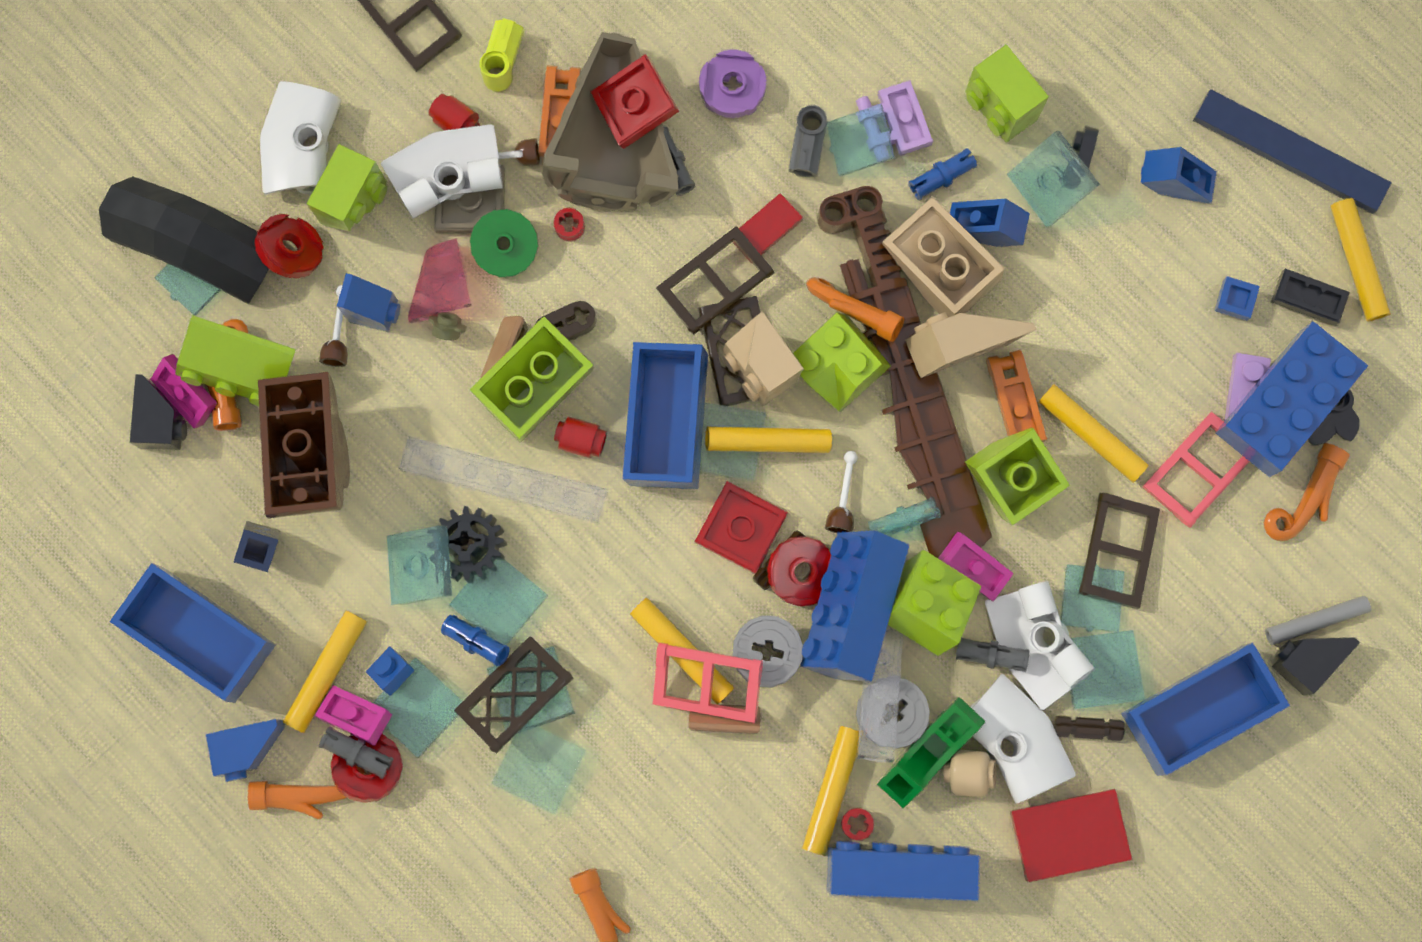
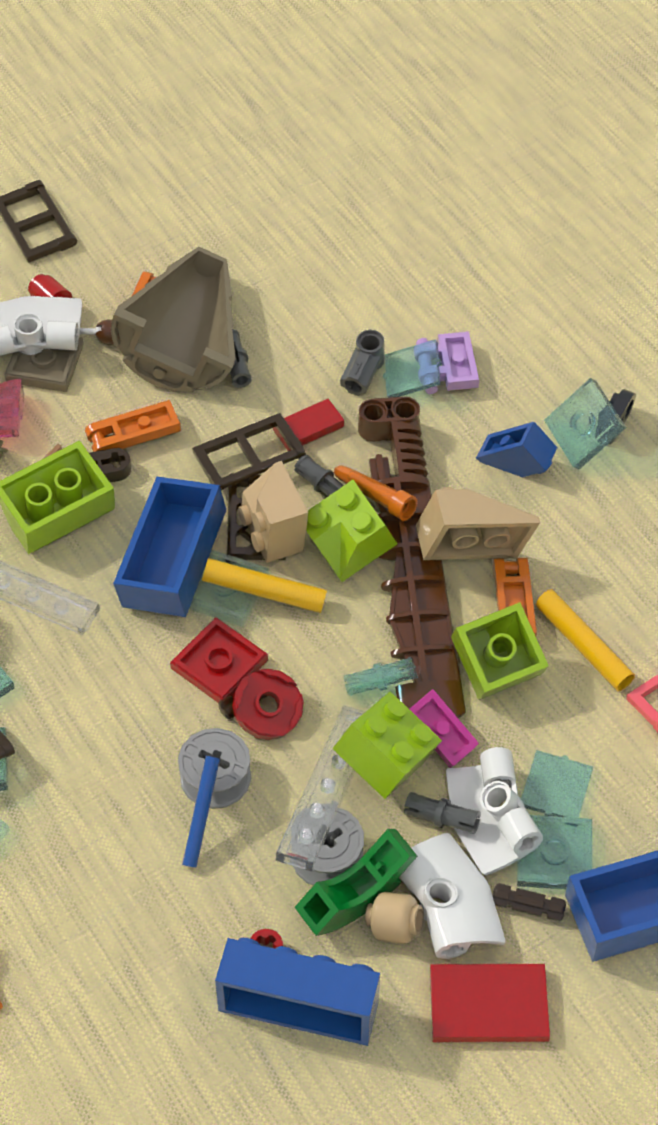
camera: 10 degrees right, 25 degrees down
(501, 53) = (104, 258): neon yellow piece -> none
(522, 243) = (67, 407): green plate -> none
(560, 230) = (128, 400): red bush -> none
(580, 437) = (86, 555): red brick -> none
(588, 270) = (134, 427): none -> orange plate
(634, 101) = (212, 300): red tile -> none
(664, 631) = (131, 755): yellow piece -> none
(704, 705) = (103, 768): coral window -> none
(712, 723) = (152, 826): medium nougat slope -> none
(719, 70) = (306, 326): medium lavender plate -> none
(768, 706) = (201, 811): none -> blue bar
(798, 297) = (320, 478): none -> dark grey axle
(832, 791) = (248, 908): yellow piece -> none
(840, 518) = (316, 669): hinge -> none
(854, 605) = (308, 732): blue piece -> none
(942, 174) = (483, 409): blue pin -> none
(943, 260) = (465, 458): tan slope -> none
(1005, 94) = (553, 350): lime brick -> none
(1096, 544) = (573, 782): dark brown window -> none

